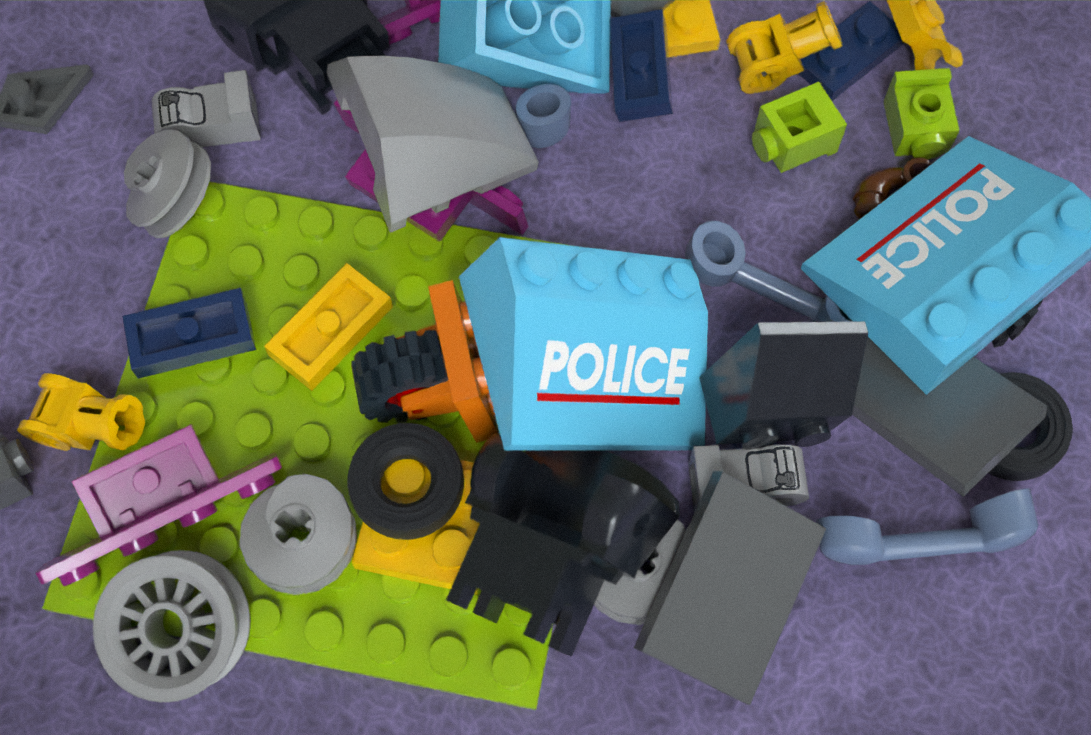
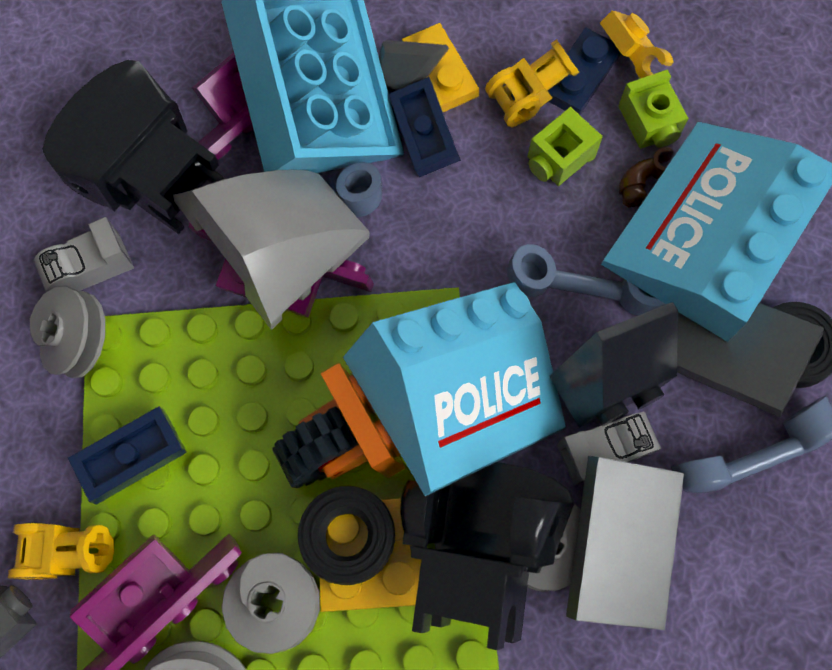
camera: 15 degrees left, 5 degrees up
(329, 326) = (241, 417): yellow plate -> none

